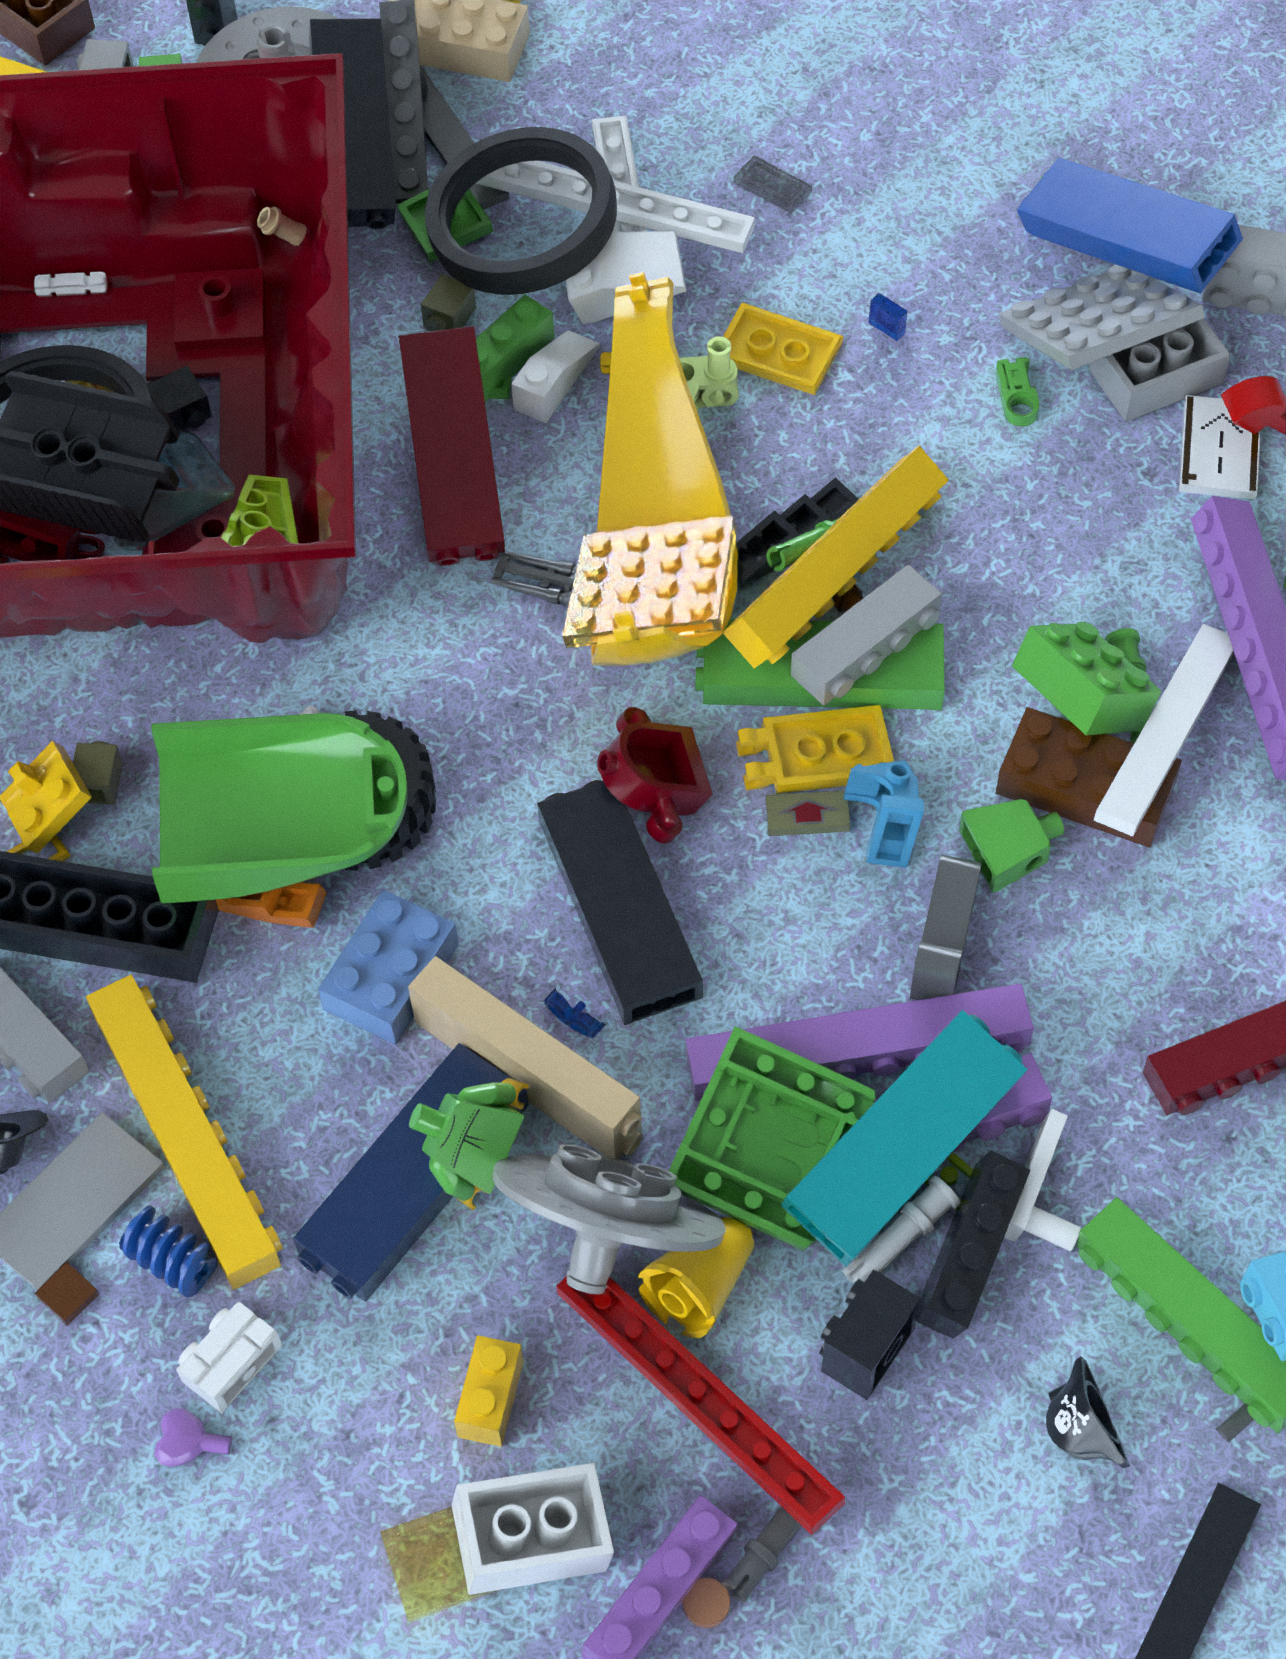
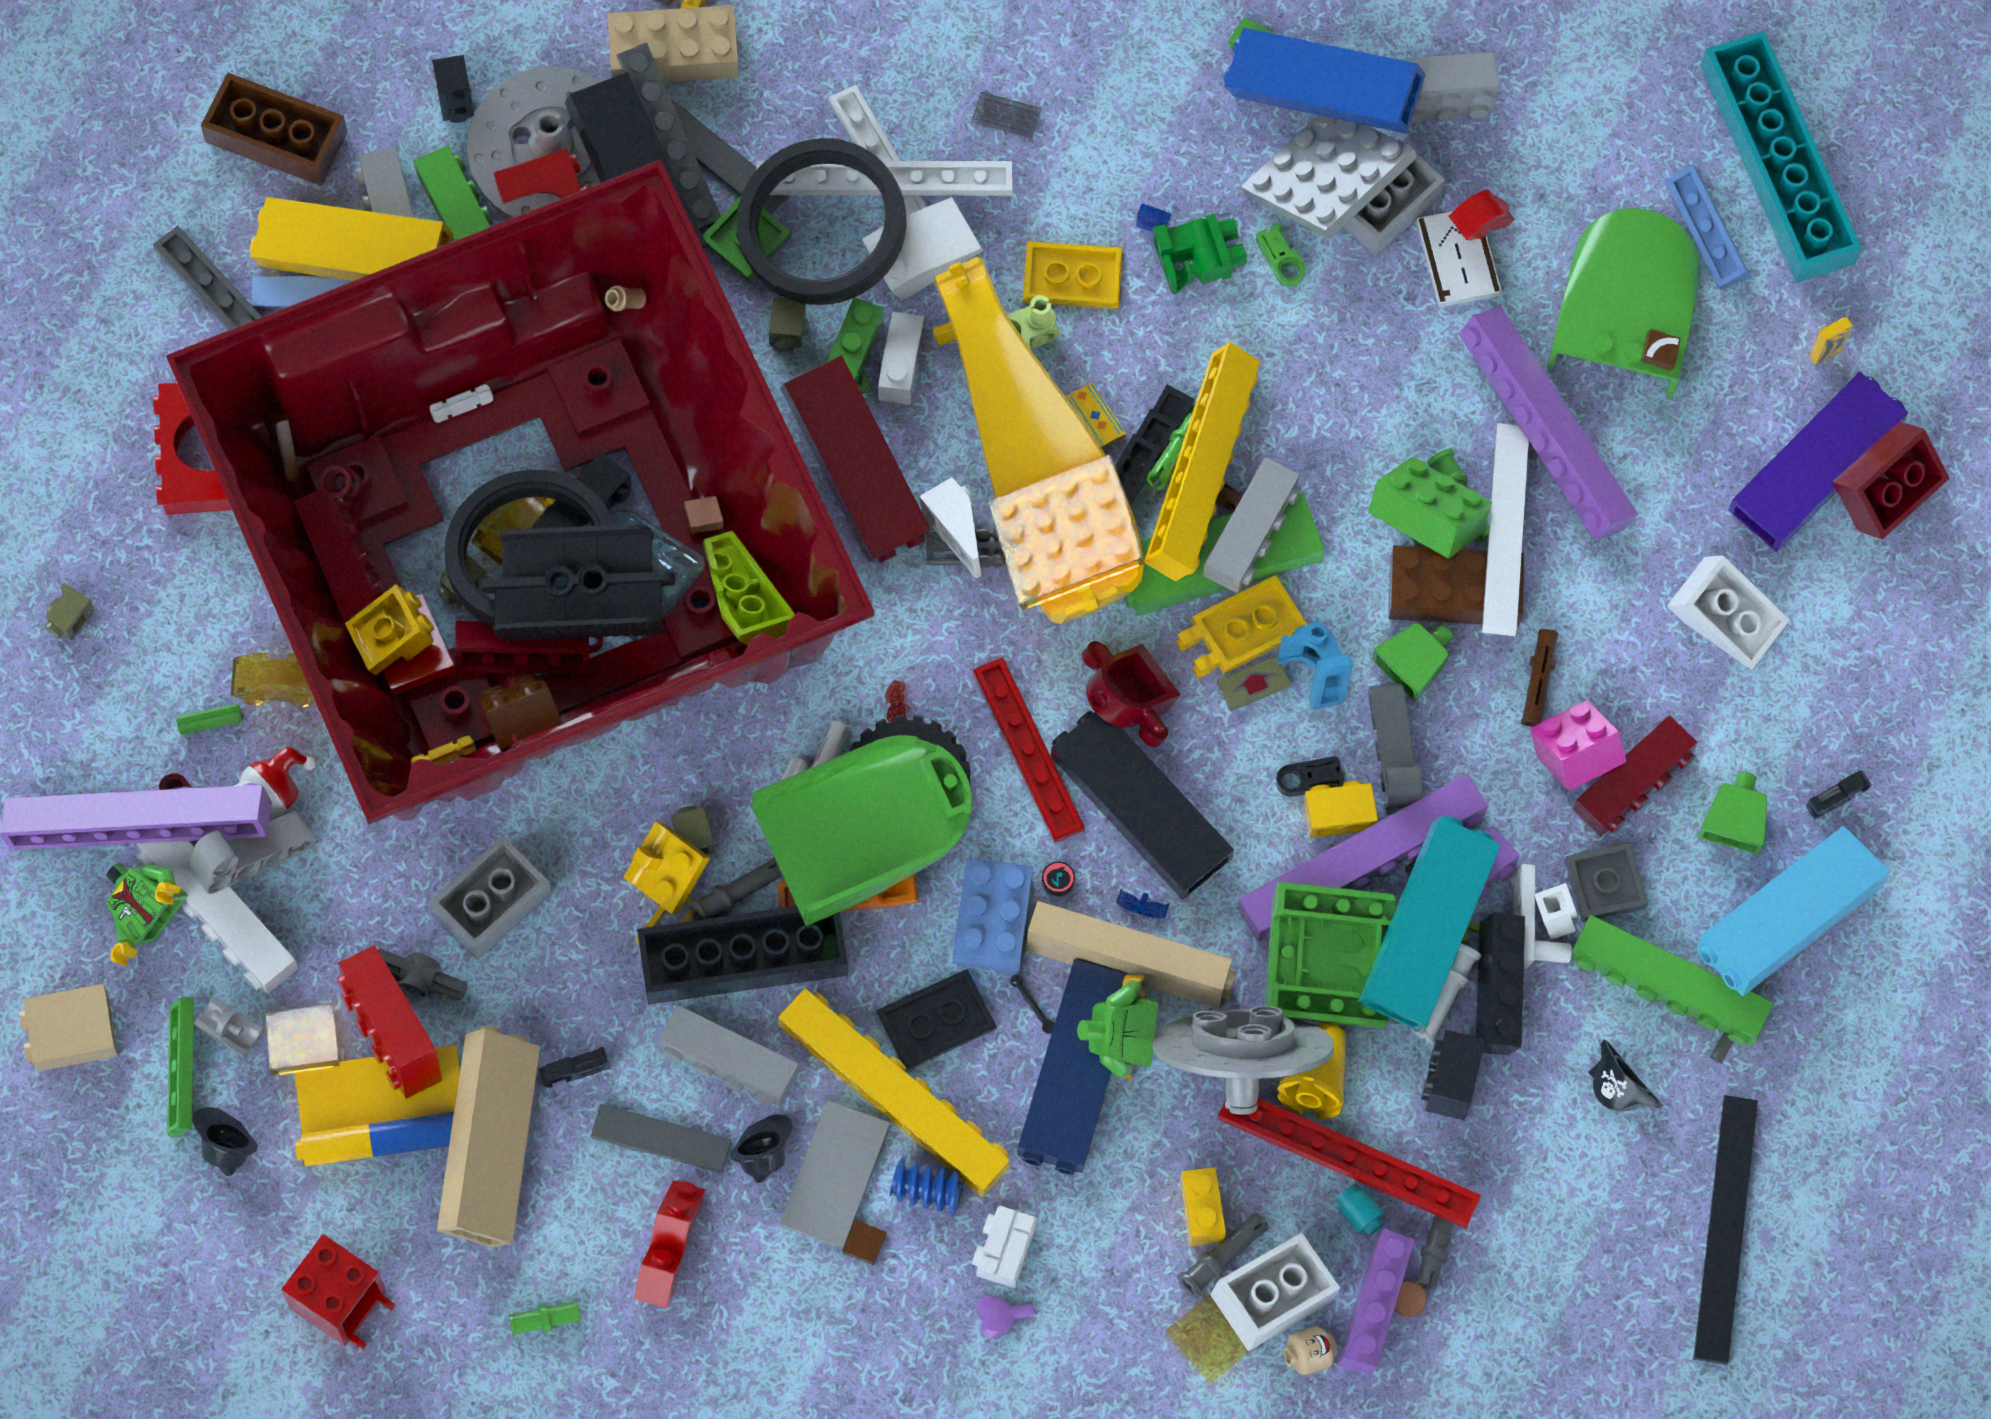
camera: 25 degrees left, 10 degrees up
(97, 851) = (723, 898): none -> dark grey pin
(264, 455) = (703, 515): none -> nougat tile
(273, 1065) = (936, 1019): none -> black tile
(388, 1053) = (1017, 981): none -> black hinge
(391, 701) = (896, 696): none -> clear red piece
(473, 1467) = (1211, 1264): none -> dark grey pin
(487, 953) = (1058, 878): none -> black tile
(516, 807) = (1028, 750): none -> red tile
(536, 538) = (950, 515): none -> white slope
(550, 1623) = (1310, 1350): none -> tan head
(688, 1465) = (1361, 1210): none -> teal brick
(743, 489) = (1097, 415): none -> yellow tile
(837, 932) = (1311, 773): none -> black piece
(851, 978) = (1339, 809): none -> yellow brick
(926, 359) = (1203, 243): none -> green hips
(1076, 1180) = (1557, 910): none -> white brick
(1154, 1168) = (1606, 881): none -> dark grey plate
(1172, 993) = (1578, 745): none -> dark pink brick
(1175, 874) = (1542, 665): none -> reddish brown pin

